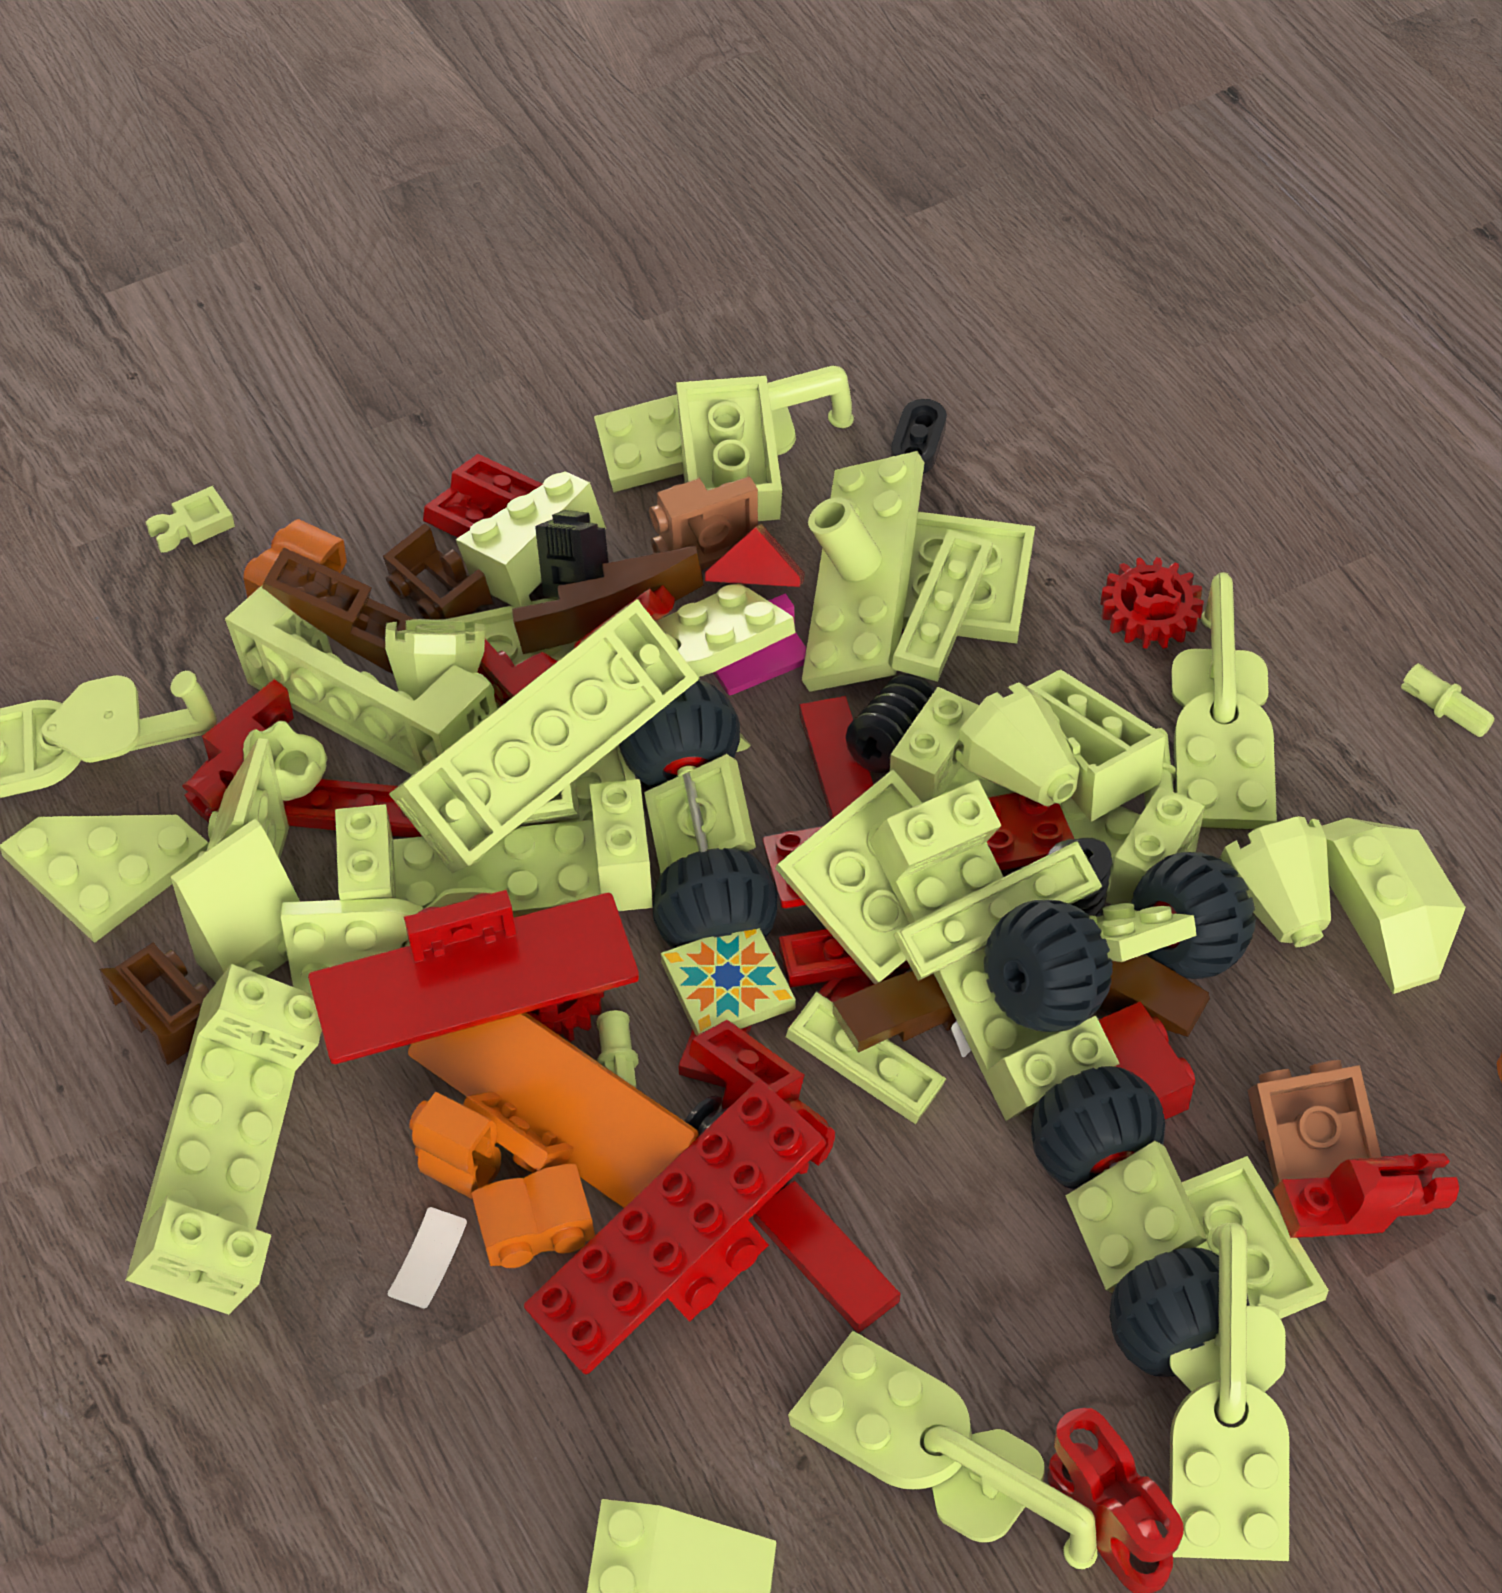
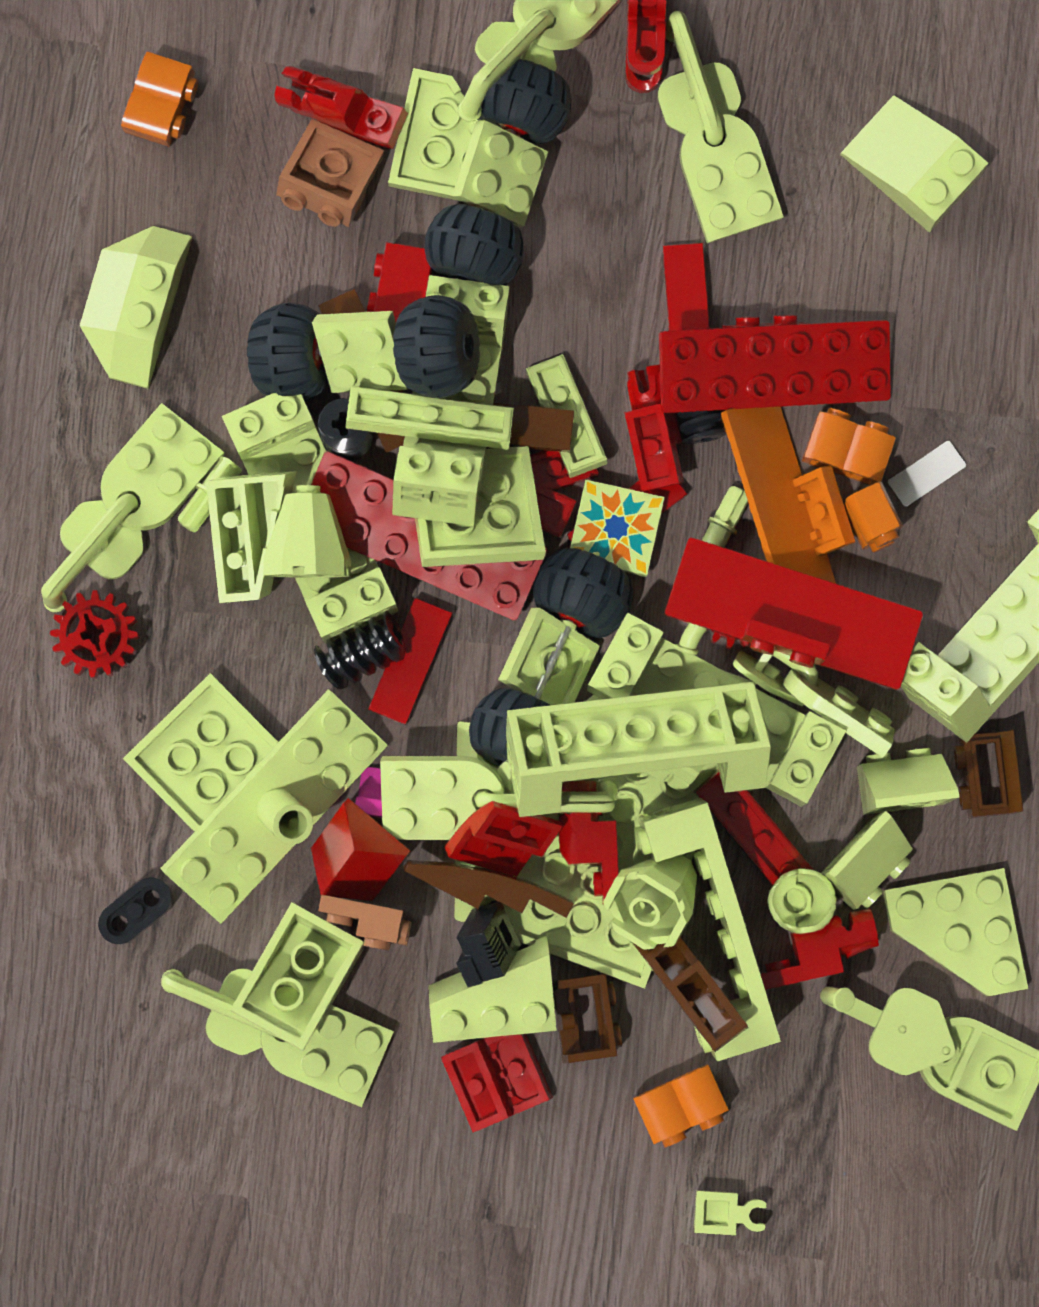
camera: 145 degrees left, 30 degrees up
(942, 605) = (254, 718): yellowish green plate -> none
(1286, 878) = (201, 348): yellowish green cone -> none

